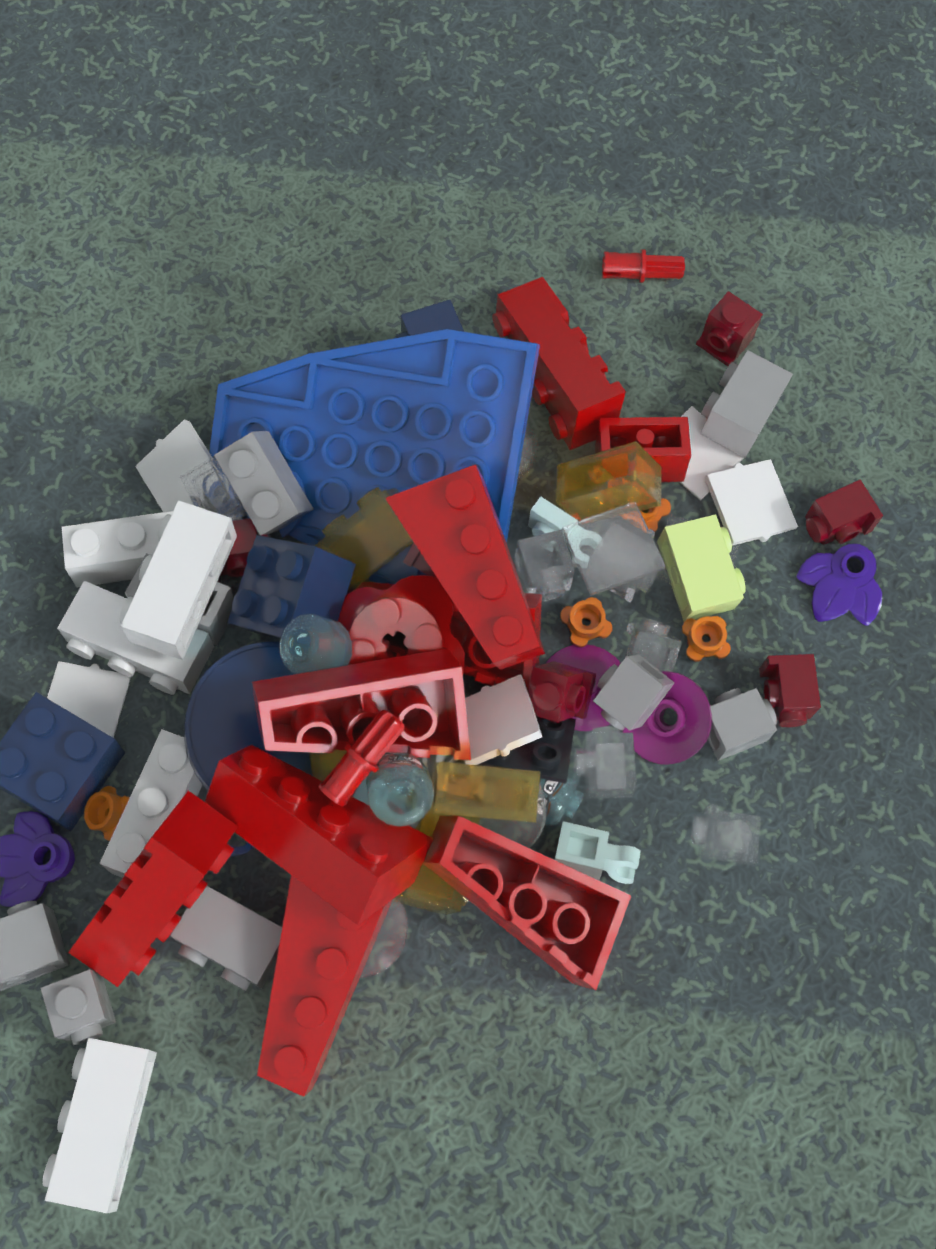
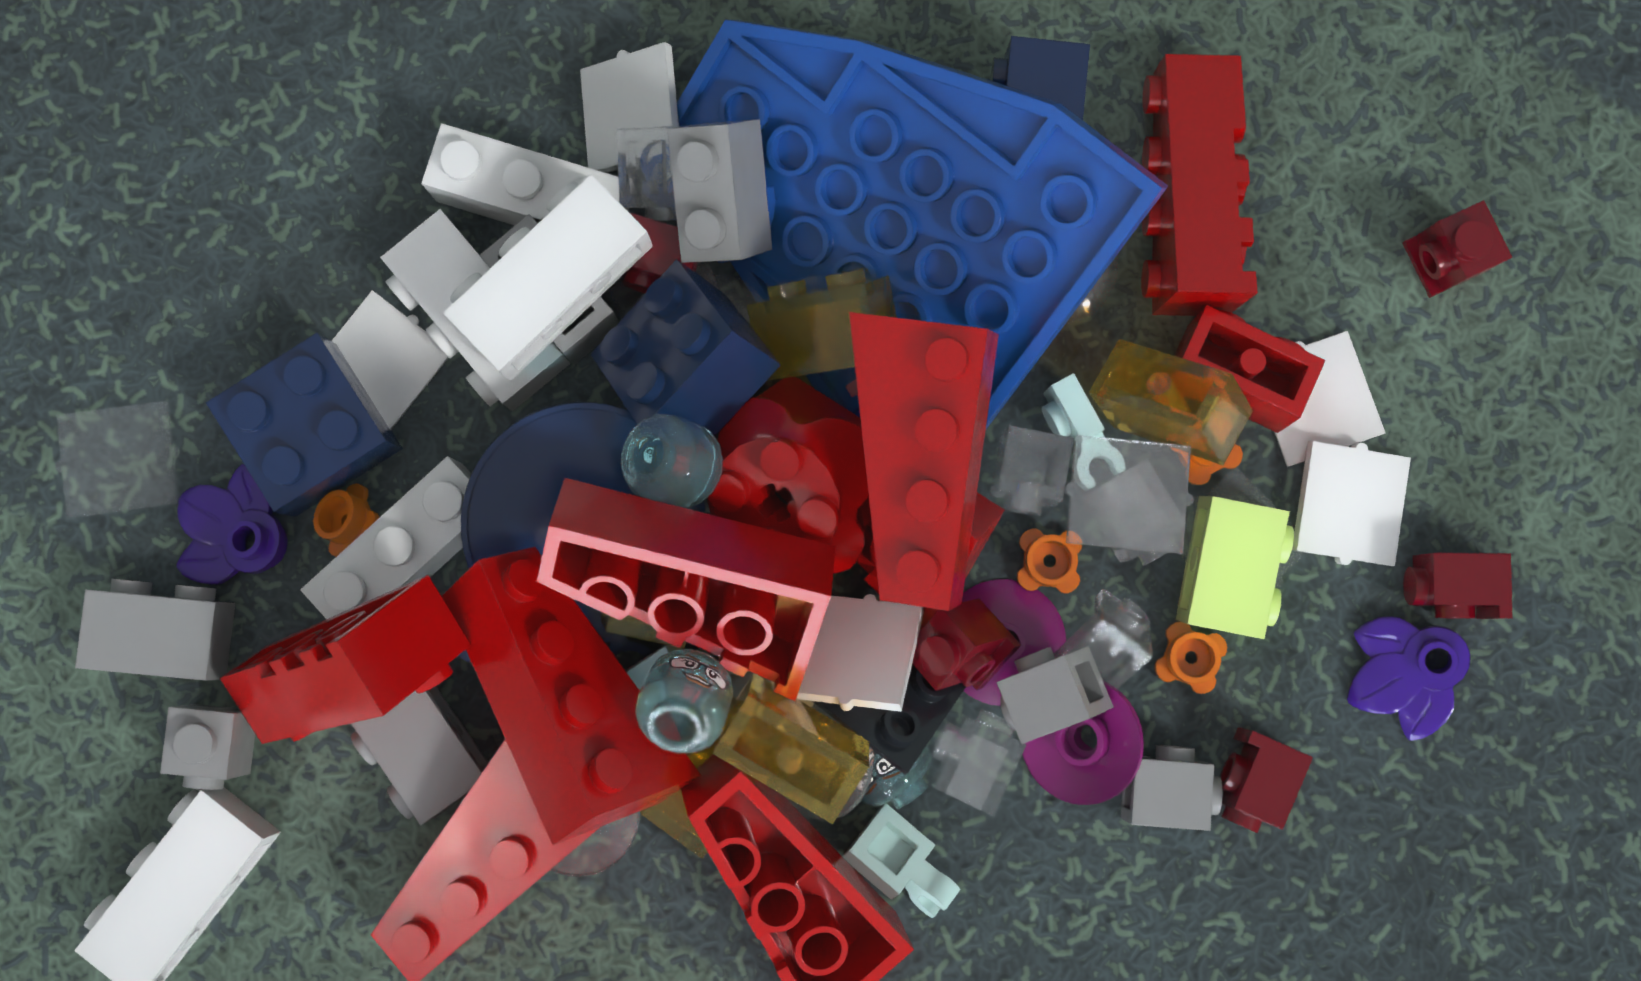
camera: 25 degrees right, 15 degrees up
(361, 757) = (650, 649): red axle -> none
(641, 266) = (1391, 96): red axle -> none
(726, 836) = (1078, 920): clear bracket -> none
(745, 402) = (1419, 368): light grey brick -> none

